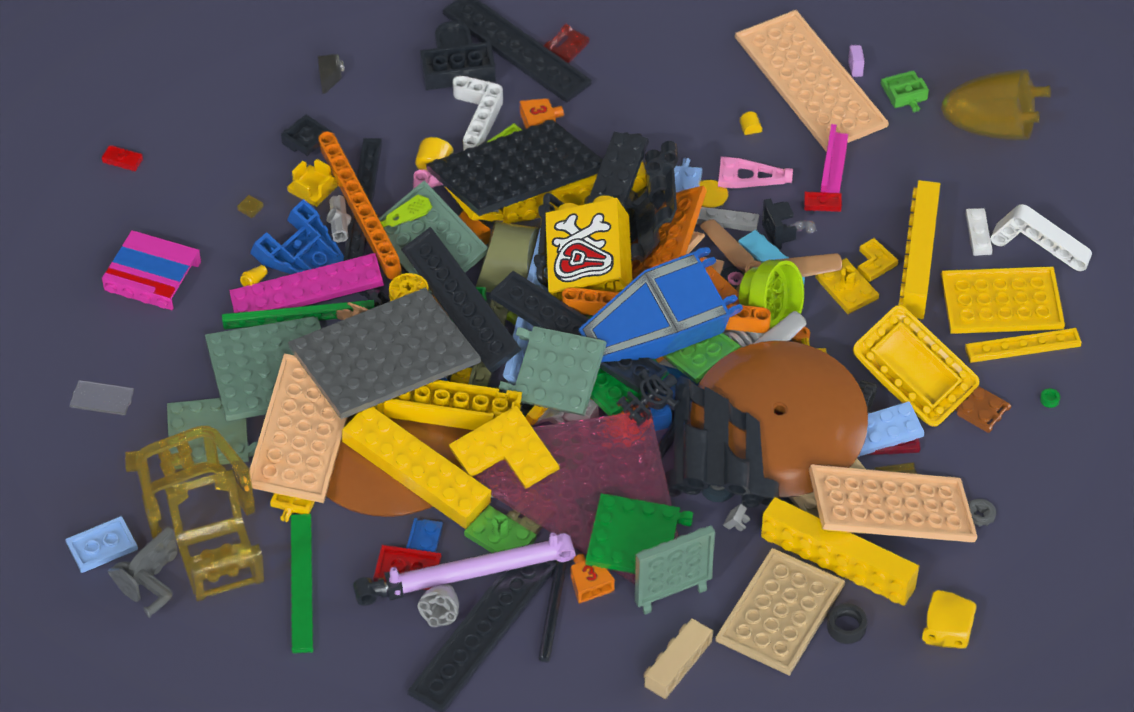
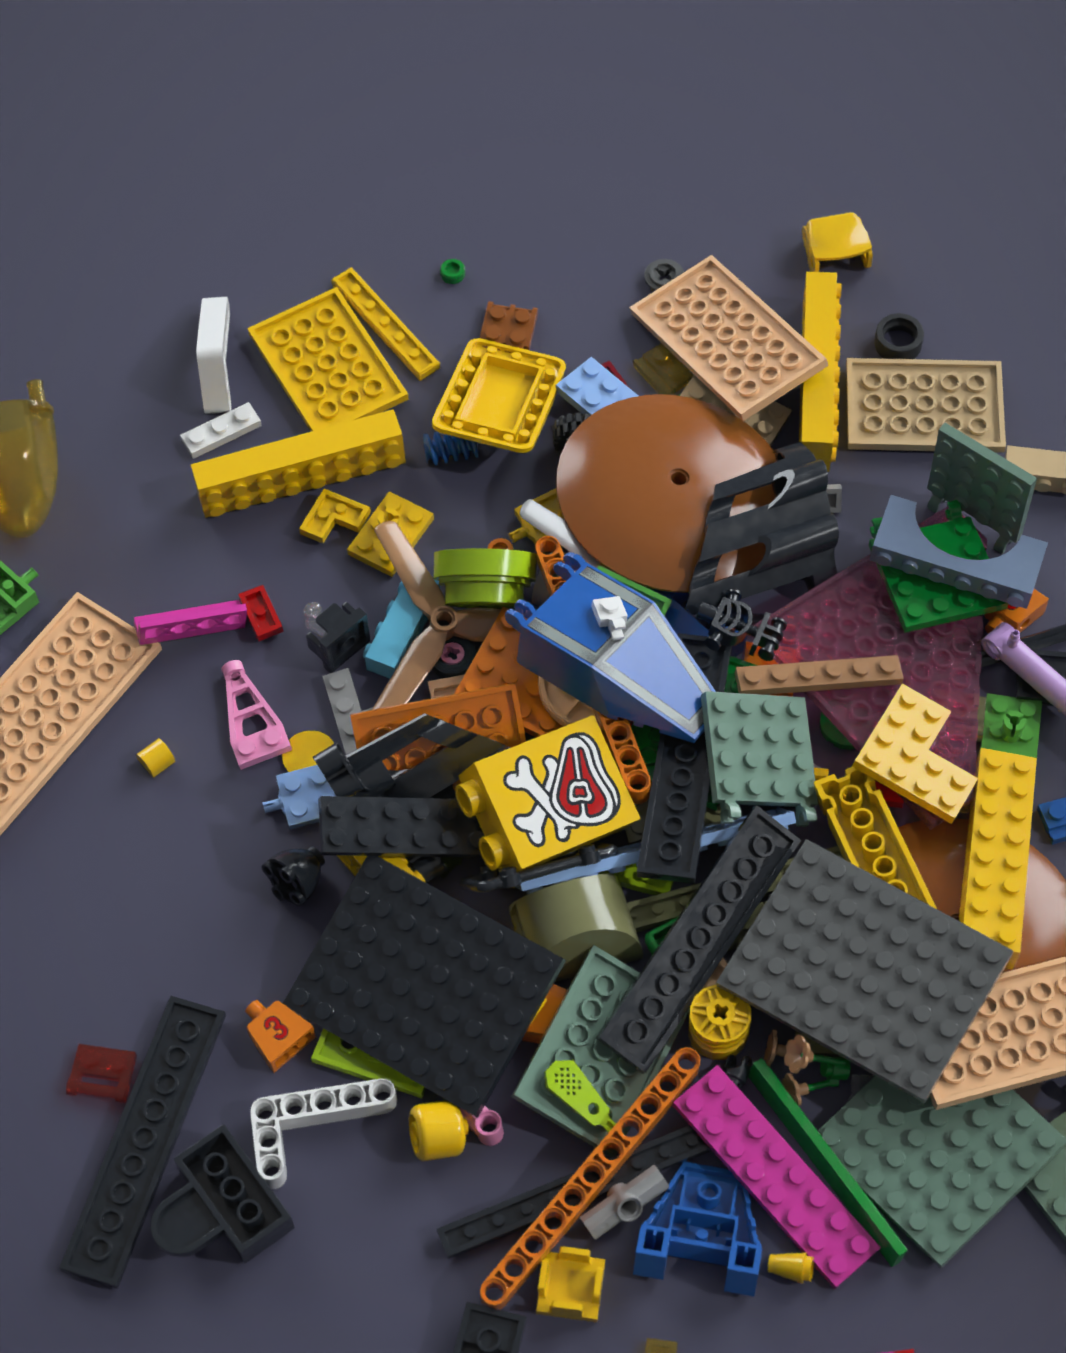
camera: 115 degrees left, 10 degrees up
(591, 427) = (819, 675): none -> medium nougat plate
(656, 509) = (1002, 578): none -> sand blue arch
(678, 298) = (611, 613): none -> white plate

